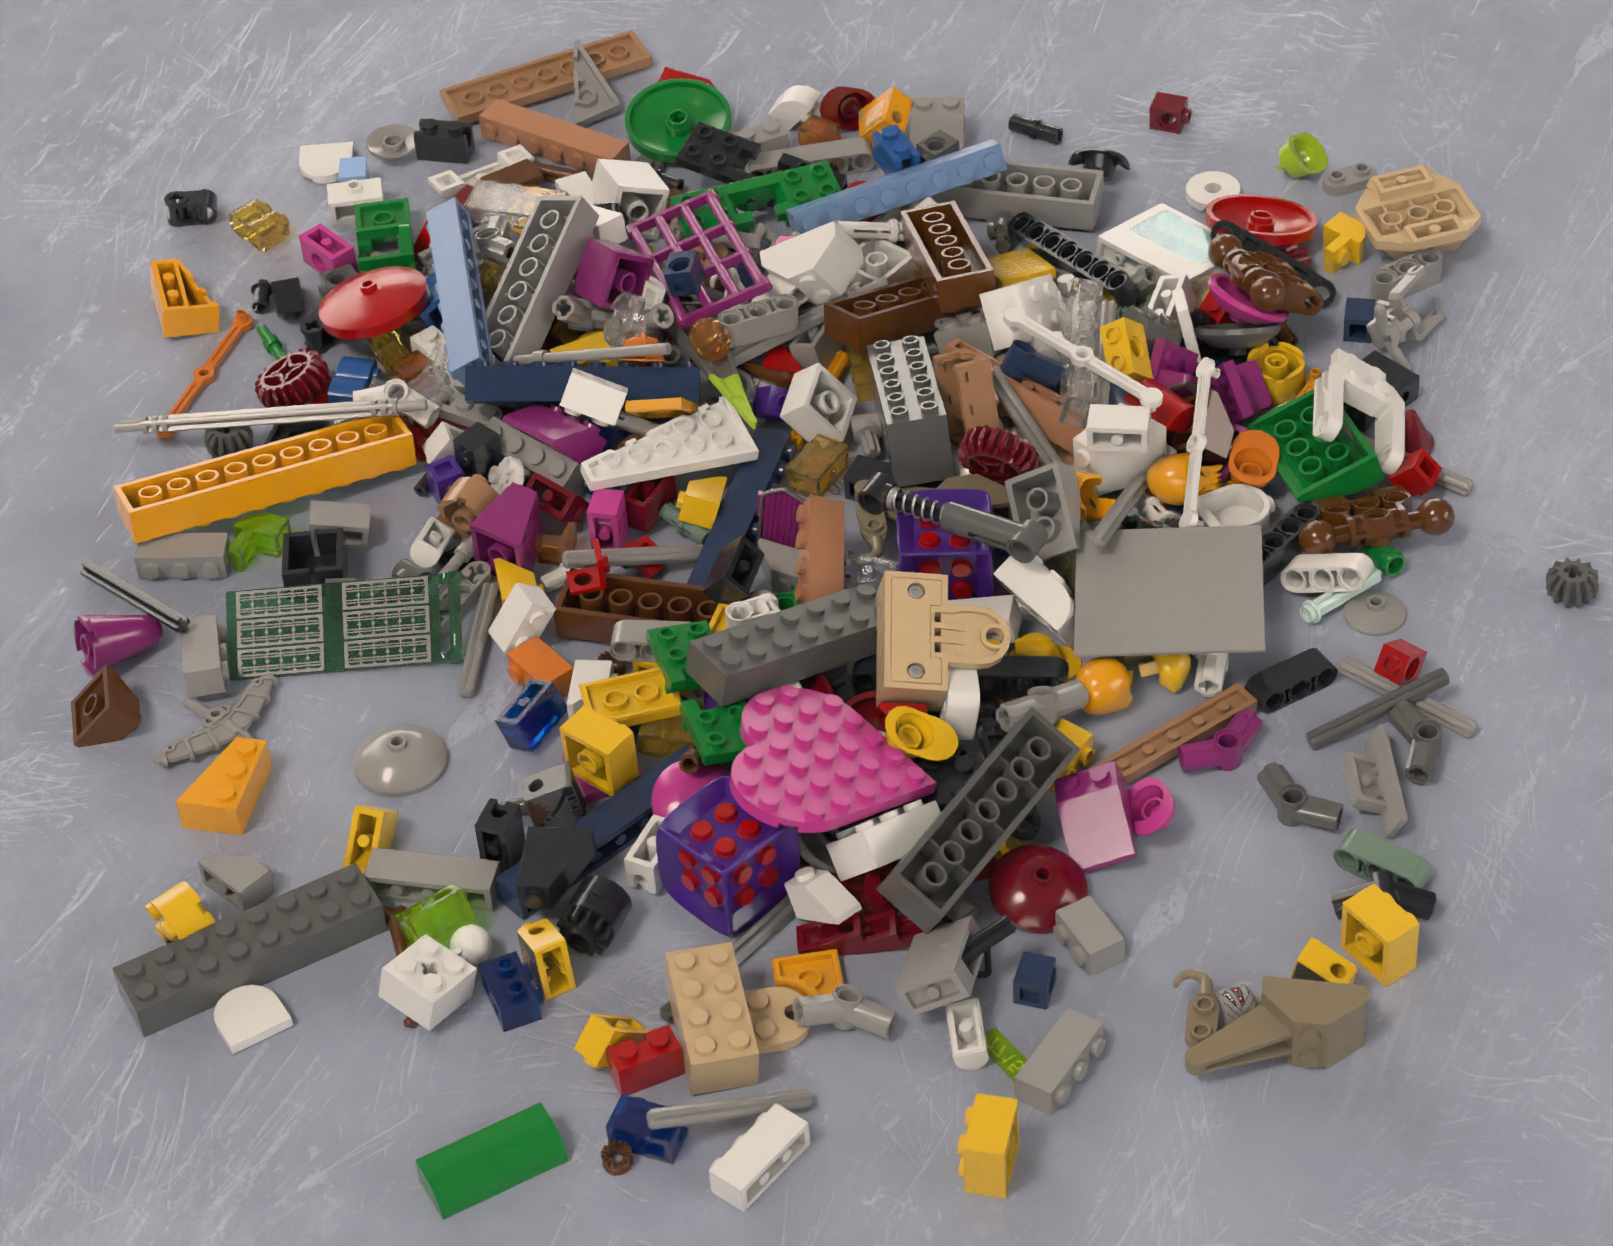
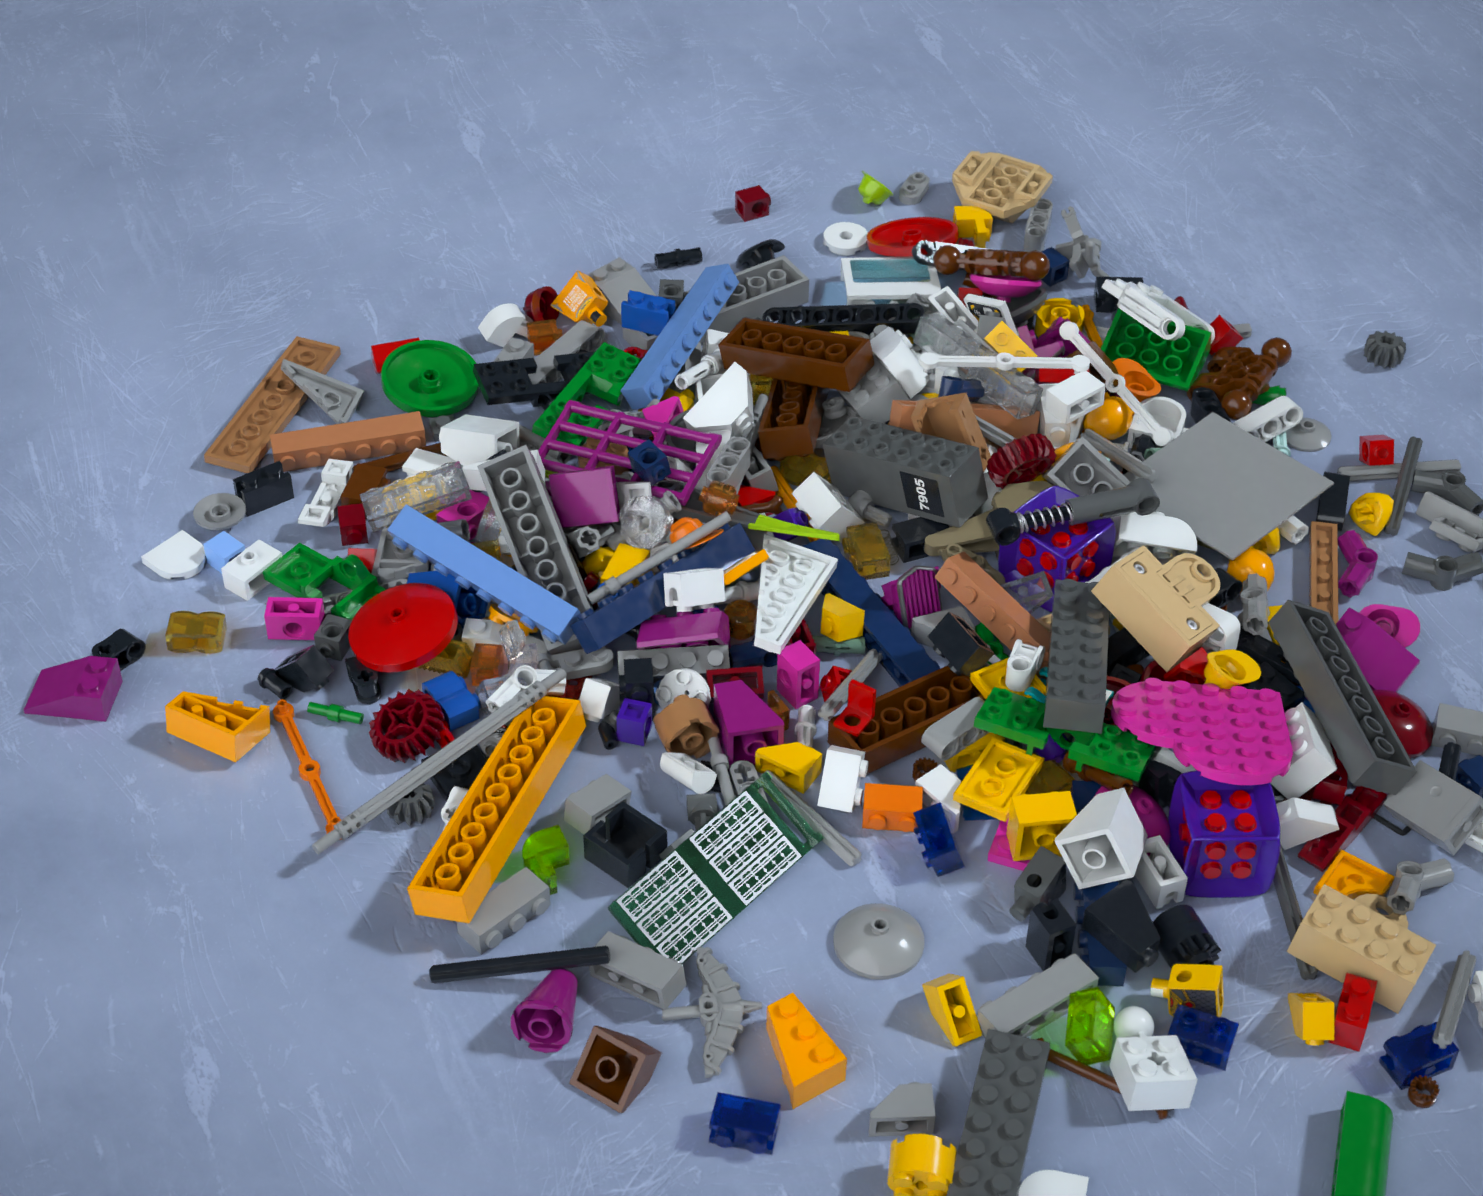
camera: 50 degrees left, 0 degrees up
(128, 808) = (744, 1123): none -> clear blue brick
(137, 222) = (77, 689): none -> magenta slope
(614, 787) = (1103, 840): none -> white slope
(1306, 711) = (1372, 512): none -> yellow piece

